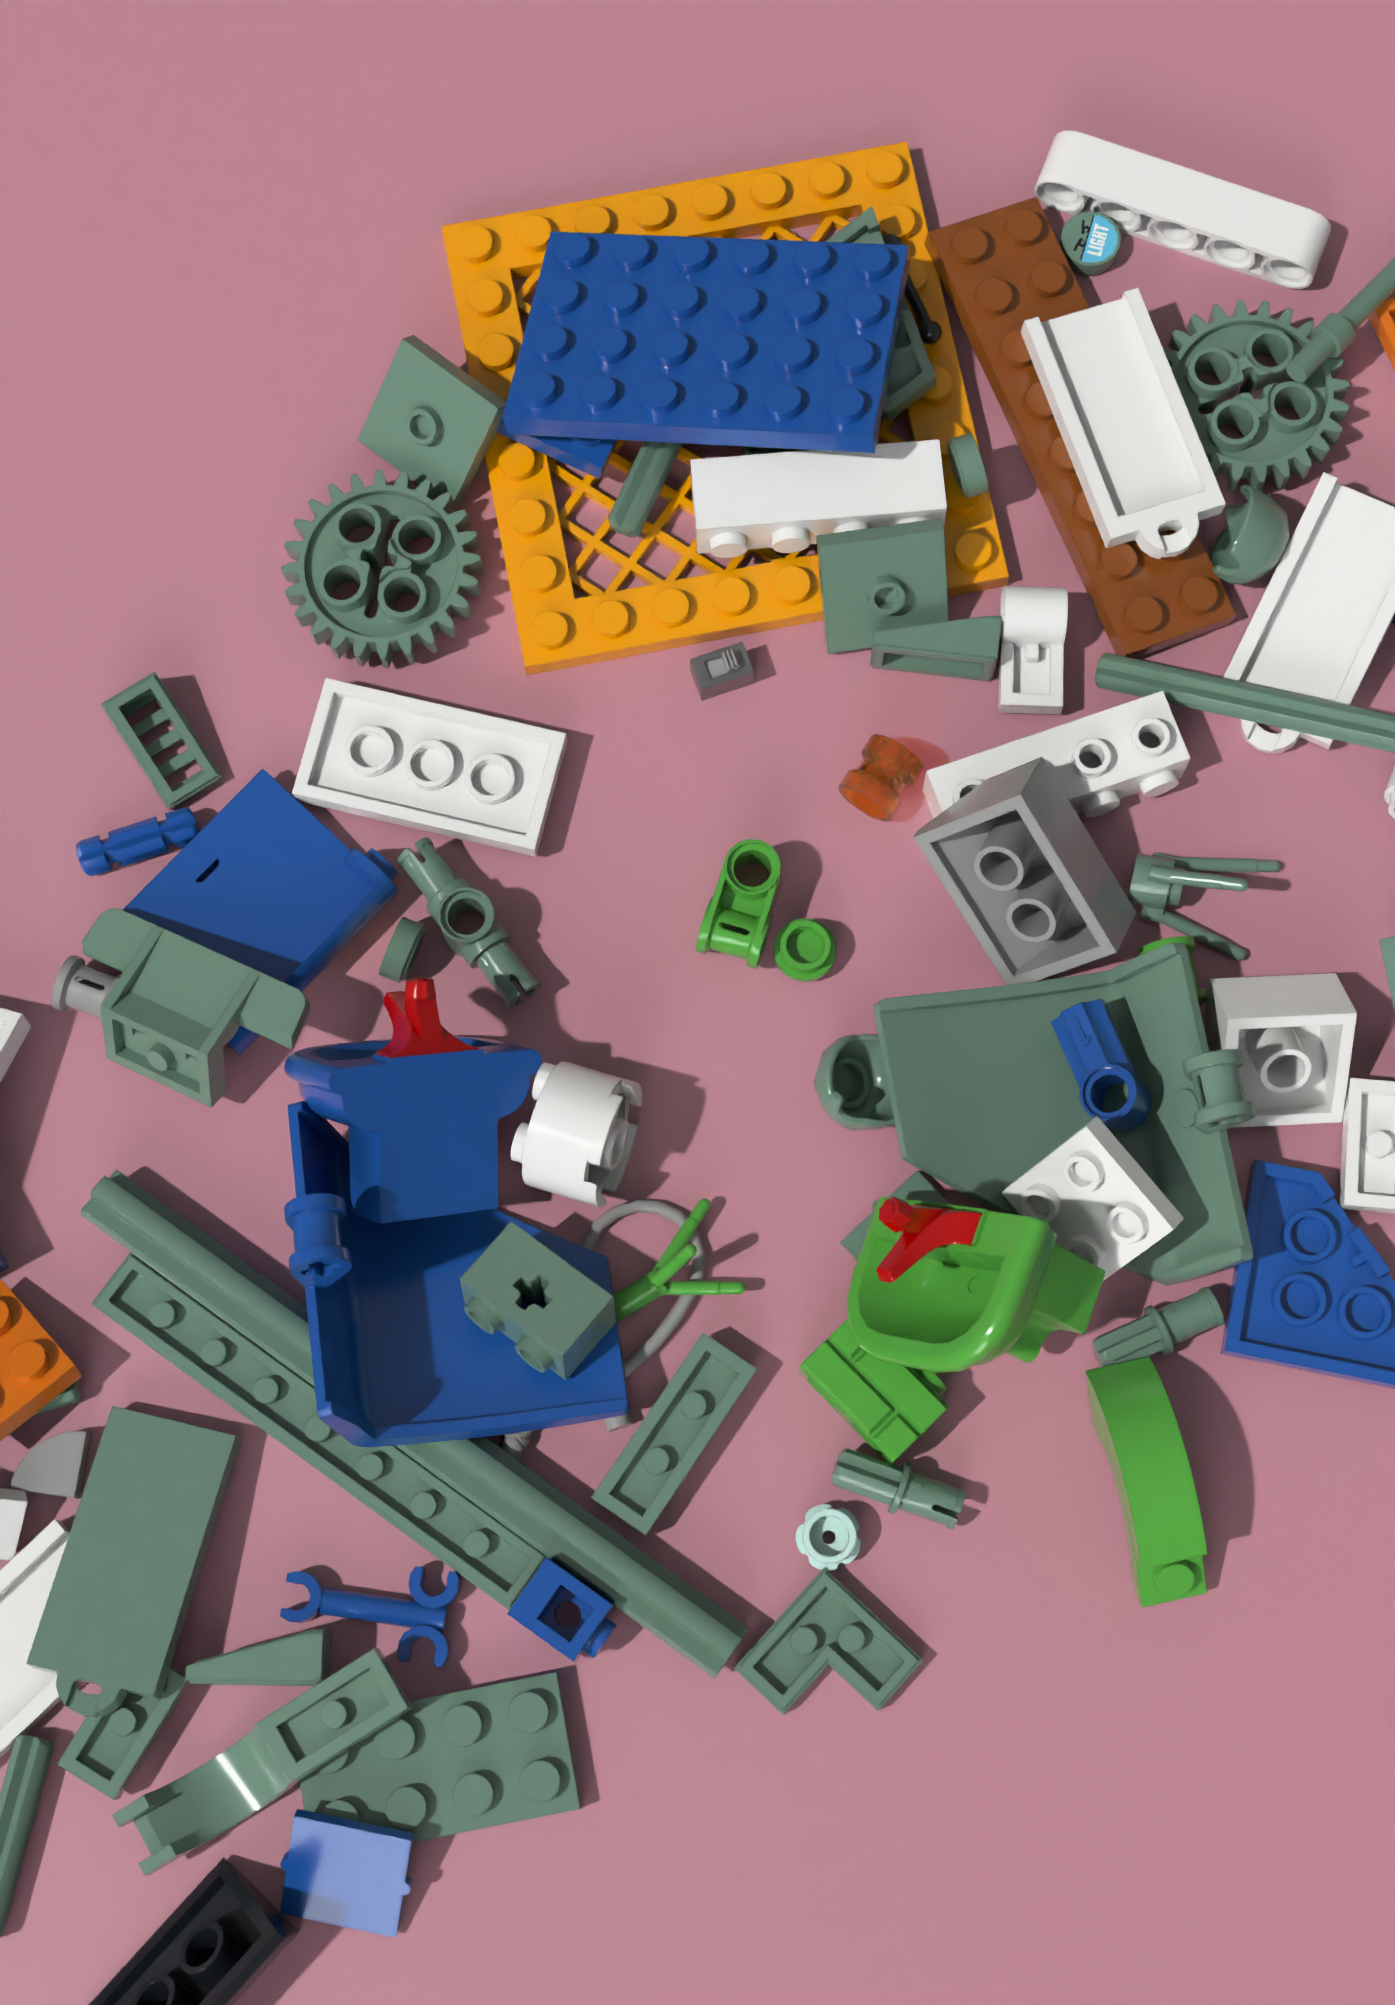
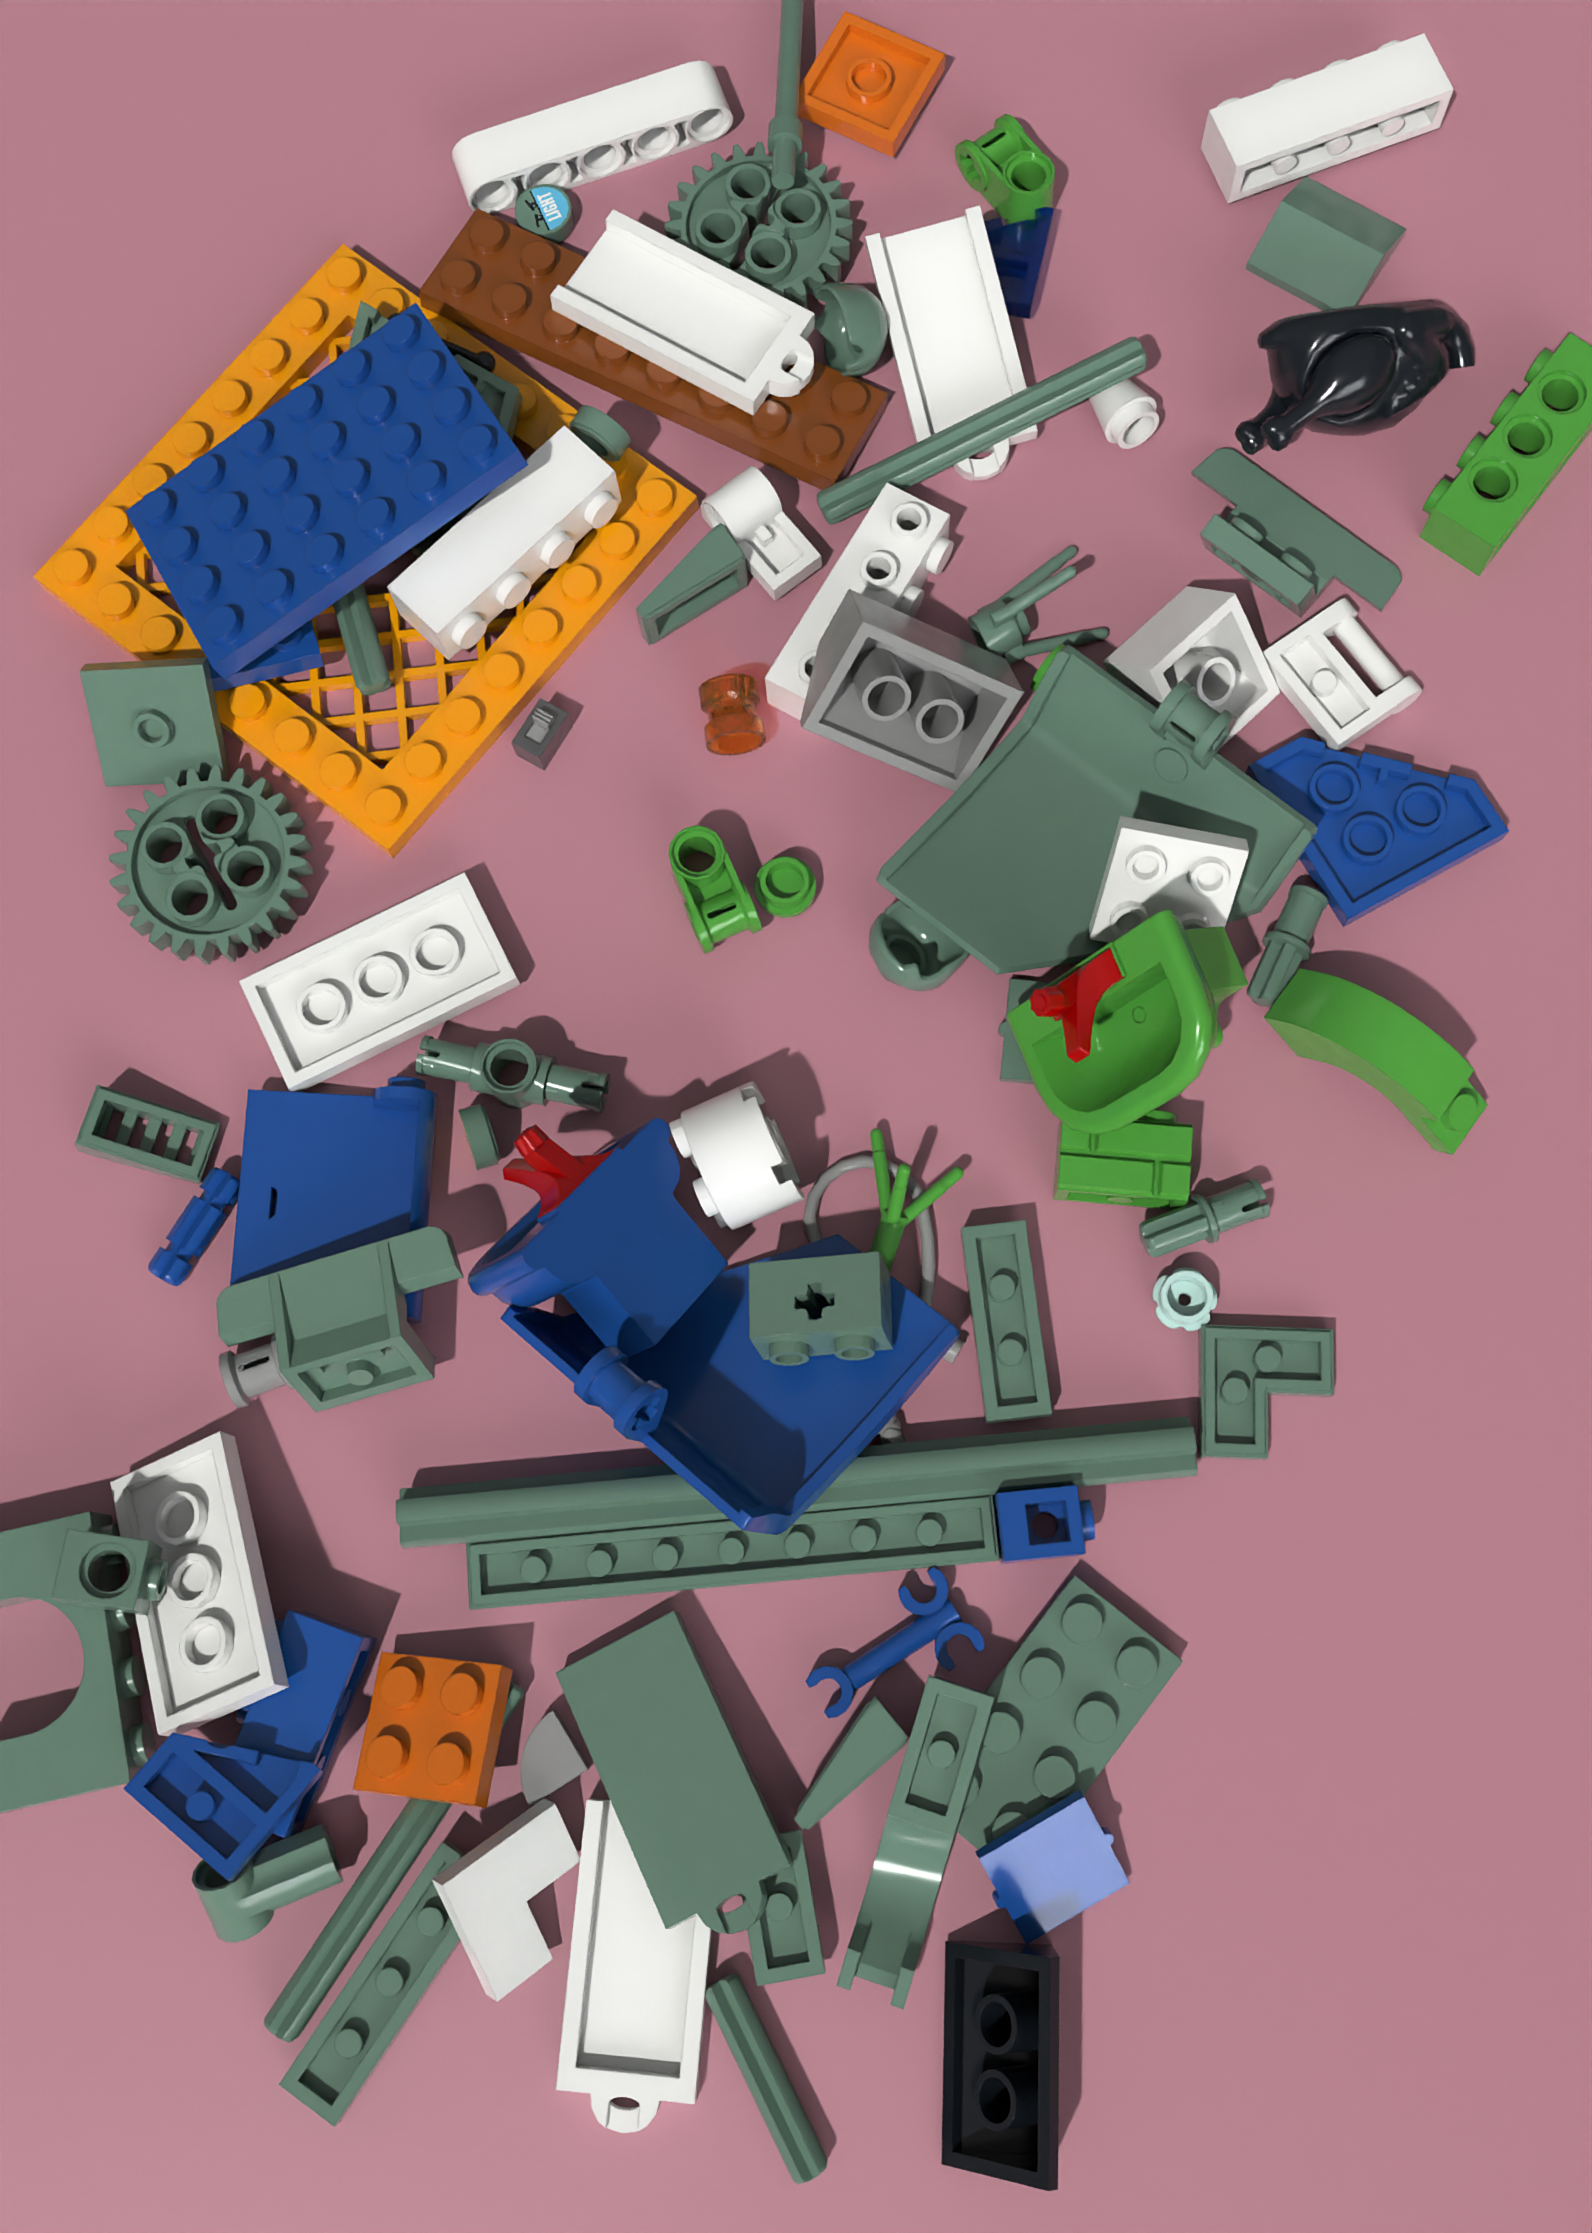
camera: 35 degrees left, 0 degrees up
(881, 581) = (608, 568): sand green plate -> none
(1101, 1062) = (1075, 784): blue piece -> none

